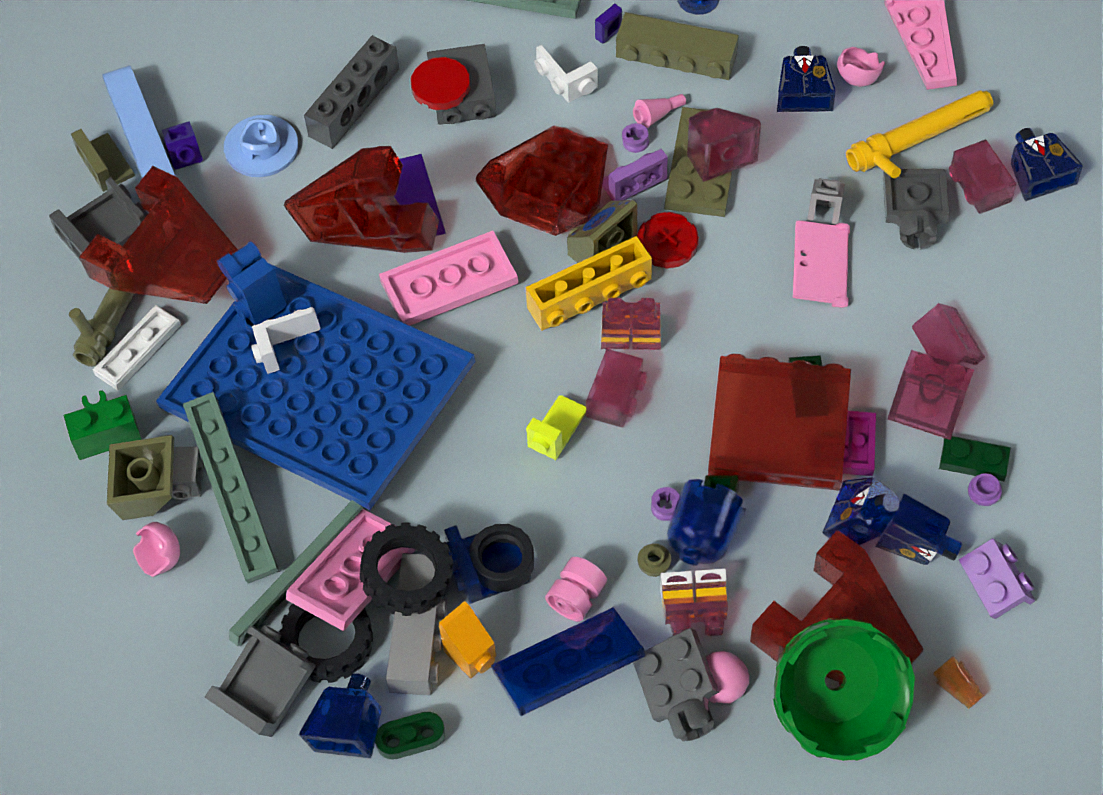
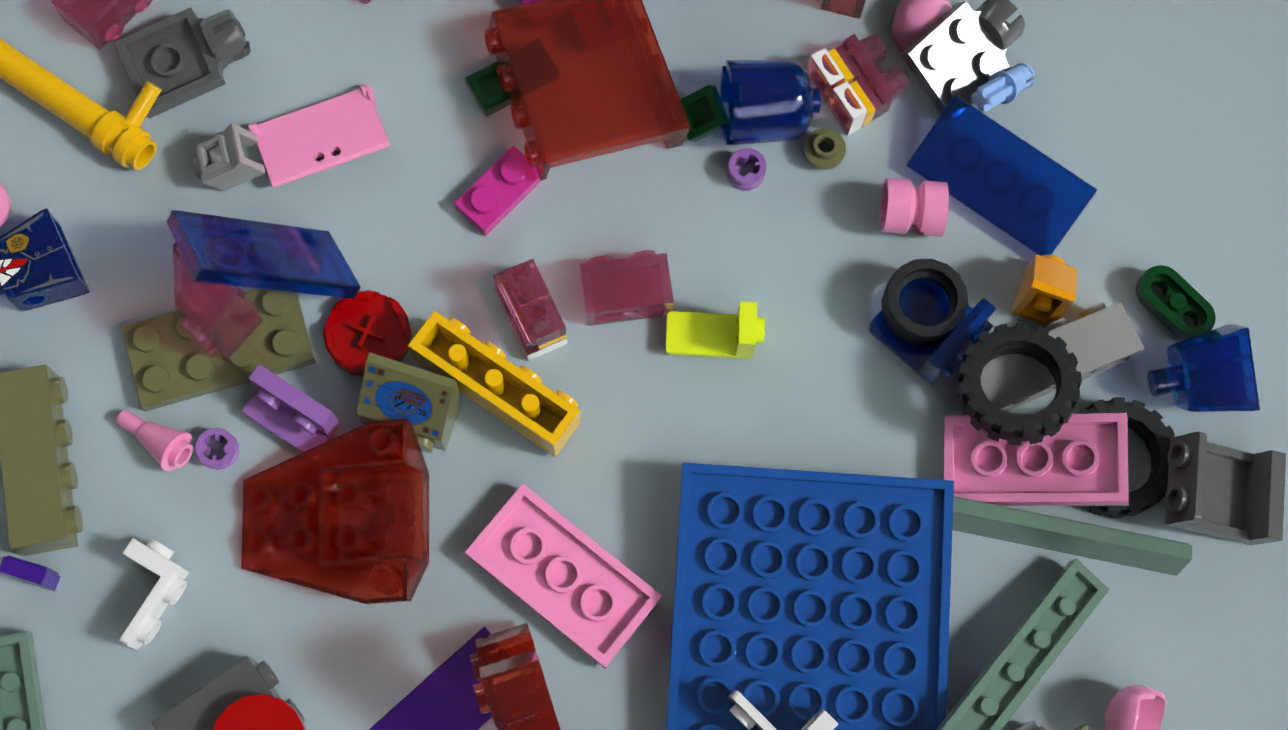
camera: 125 degrees left, 15 degrees up
(635, 695) = (1003, 87): none -> light blue axle
(724, 339) = (498, 191): none -> dark pink plate
(734, 176) = (262, 255): none -> clear blue tile

